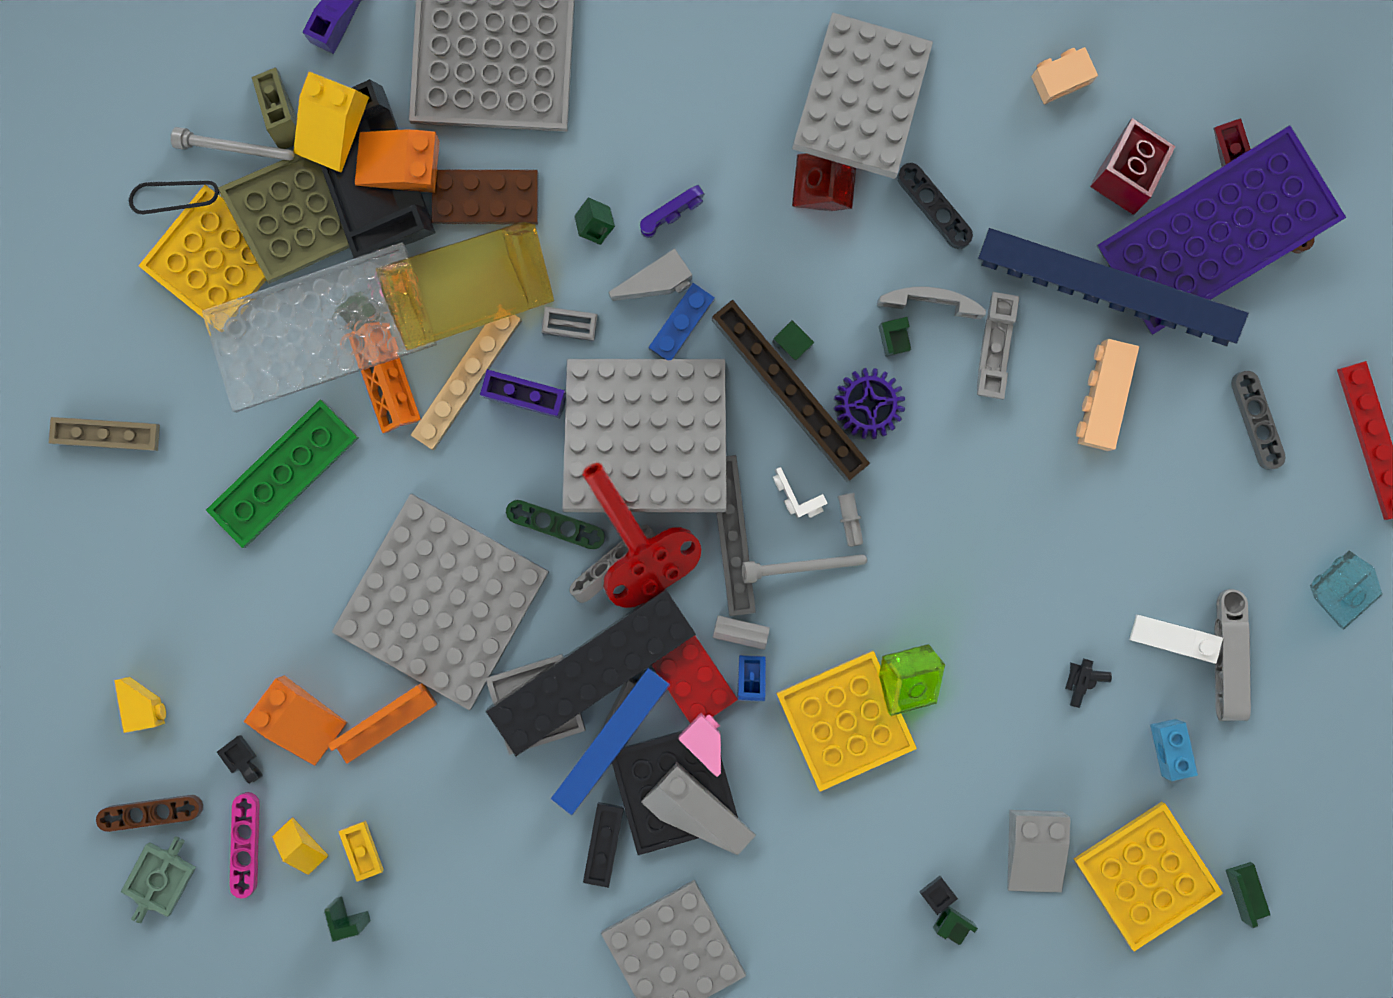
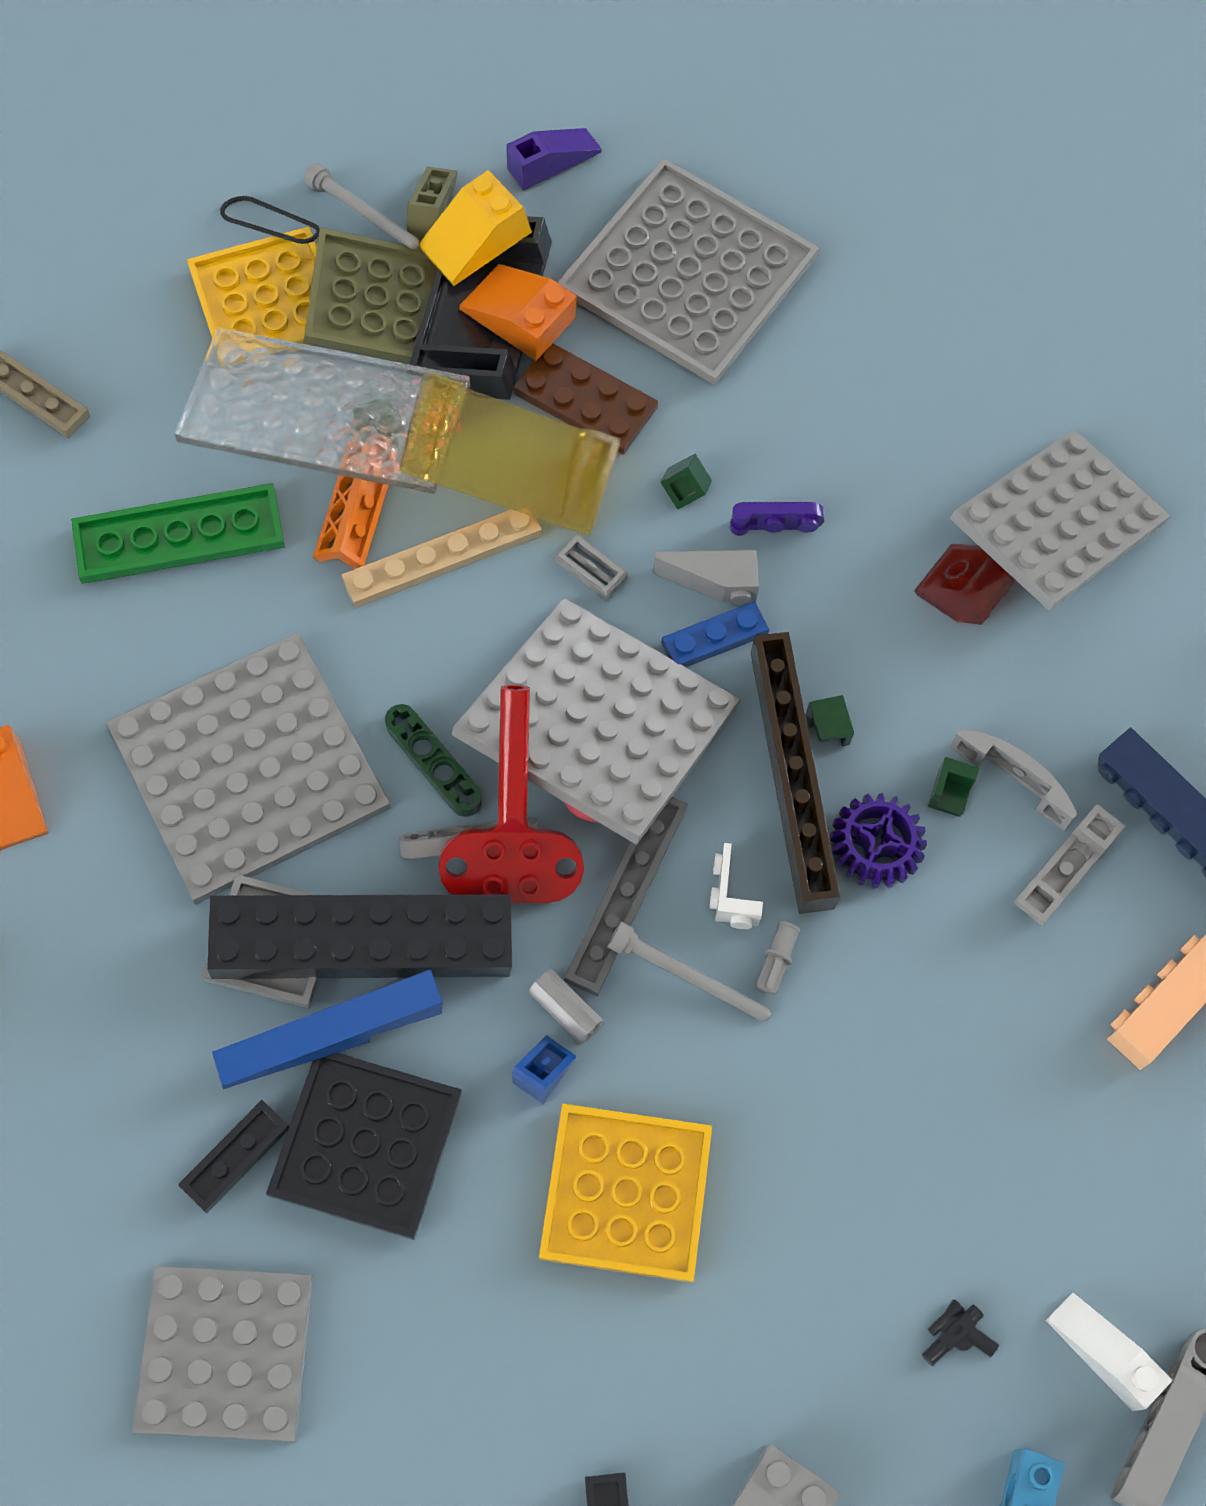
camera: 30 degrees right, 20 degrees down
(383, 723) = (87, 852): orange fence -> none
(523, 393) = (492, 599): dark purple brick -> none
(692, 808) = (369, 1173): light grey wedge -> none
(694, 680) = (474, 1031): red plate -> none
(704, 741) = (439, 1100): bright pink slope -> none
(911, 679) = (737, 1187): clear neon green slope -> none
(930, 209) = (1083, 679): black beam -> none

